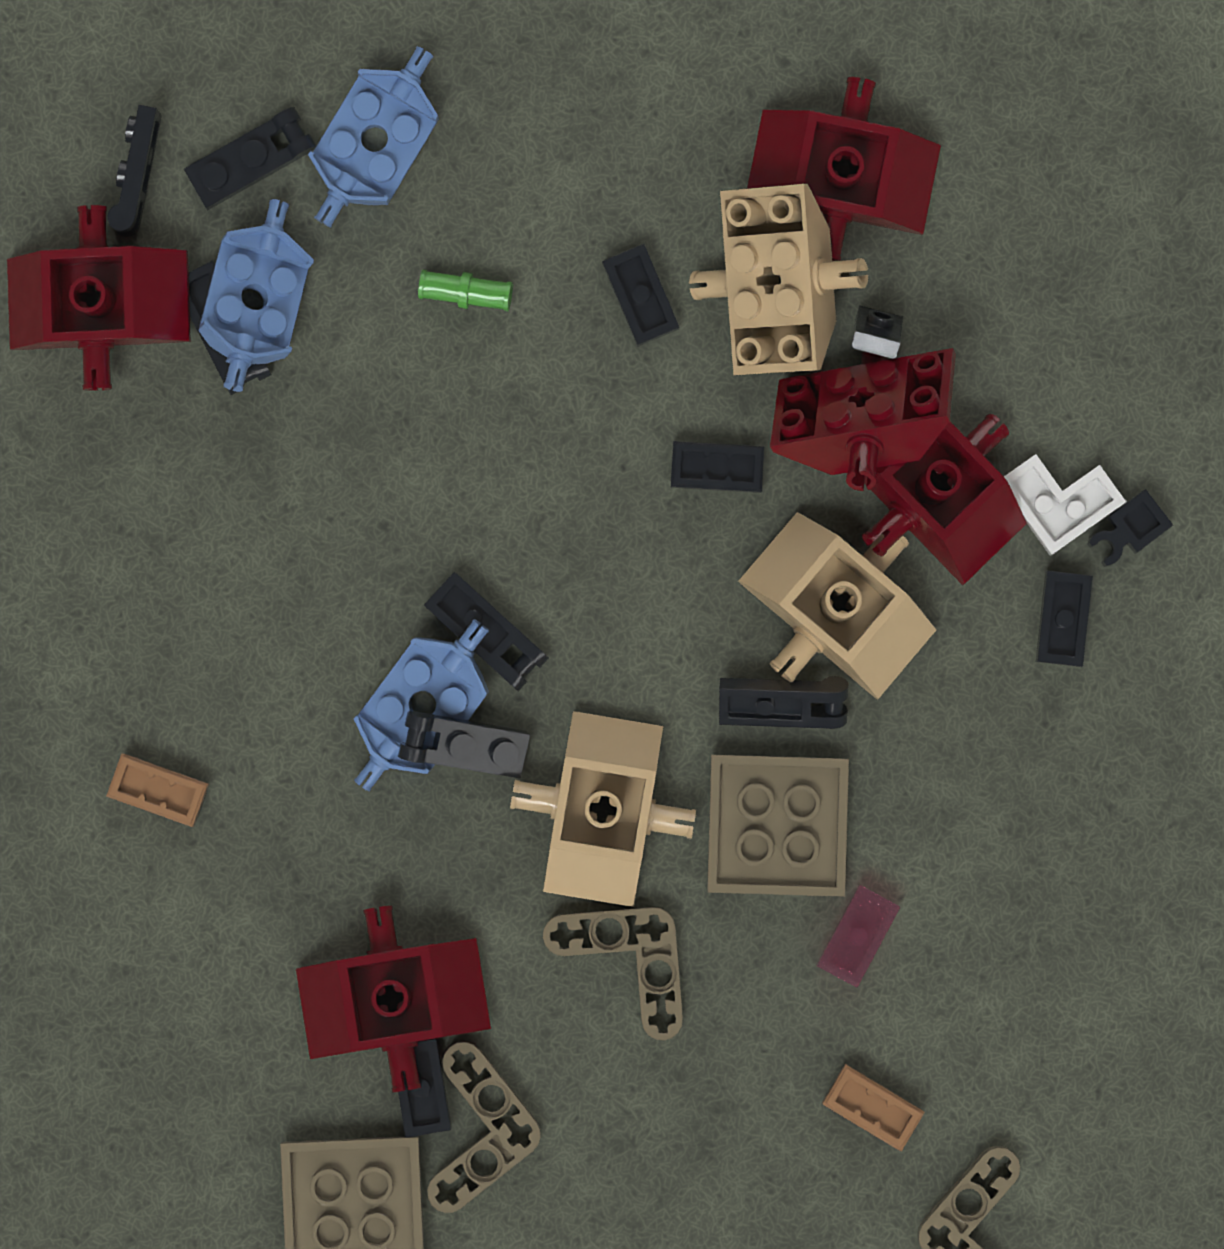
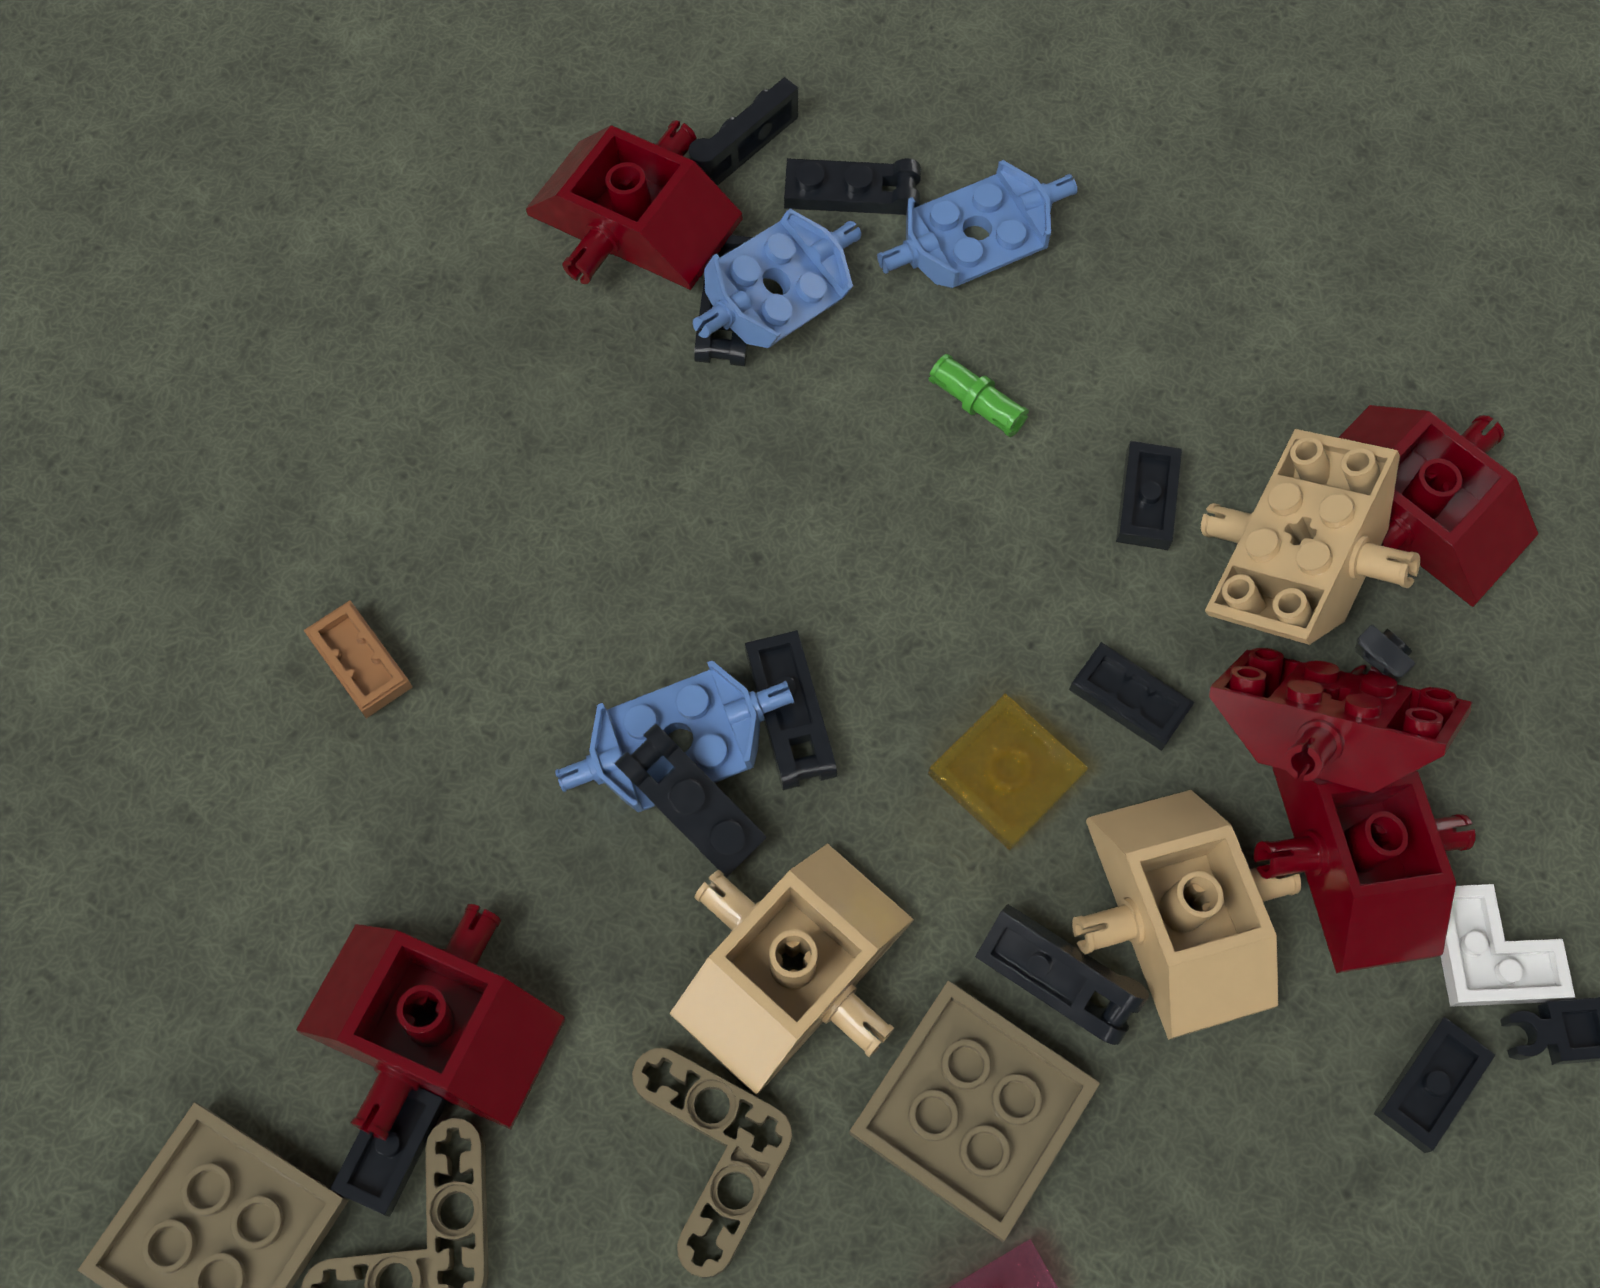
camera: 30 degrees right, 20 degrees down
(664, 579) = (1007, 771): none -> clear yellow plate

